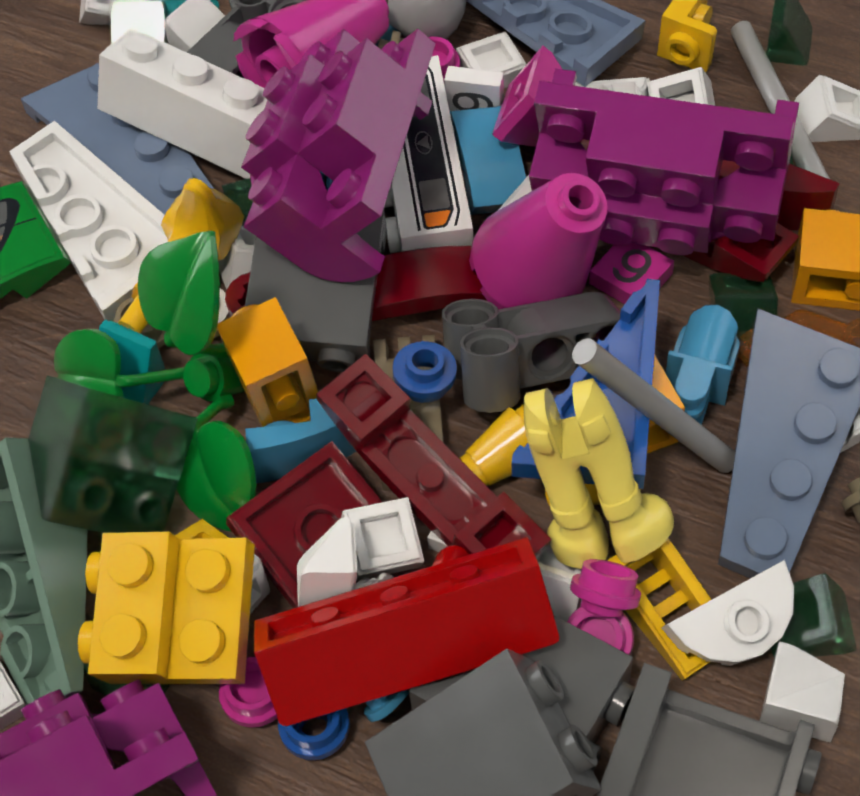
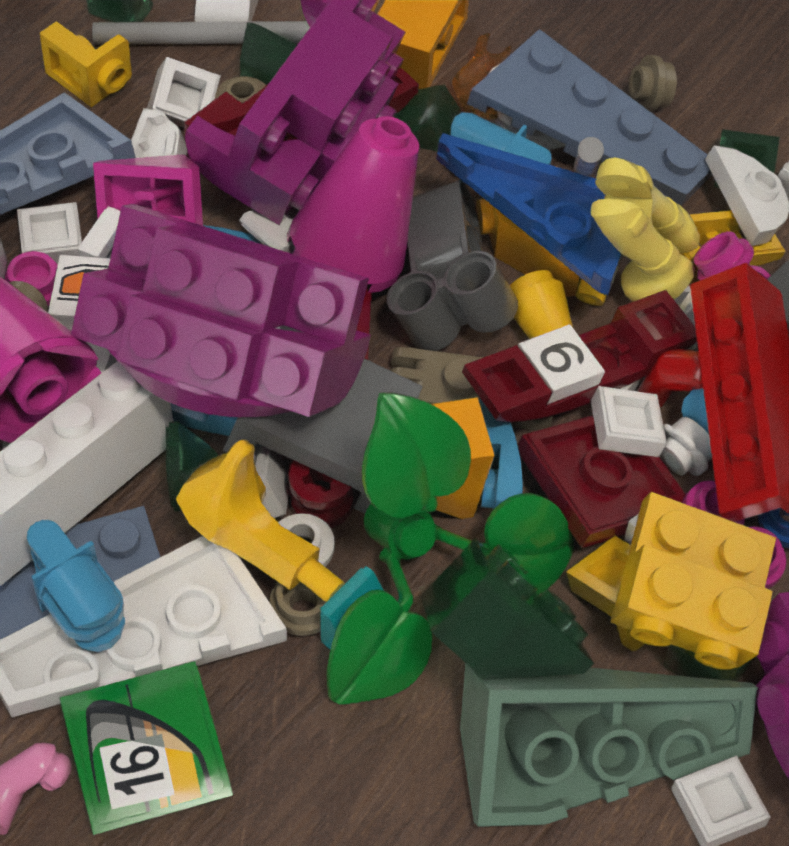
camera: 85 degrees left, 0 degrees up
(100, 148) = (75, 588): none -> dark azure arm
(328, 565) = (671, 453): white slope -> none
(411, 447) = (563, 362): none -> white tile
(424, 385) = (460, 343): blue plate -> none

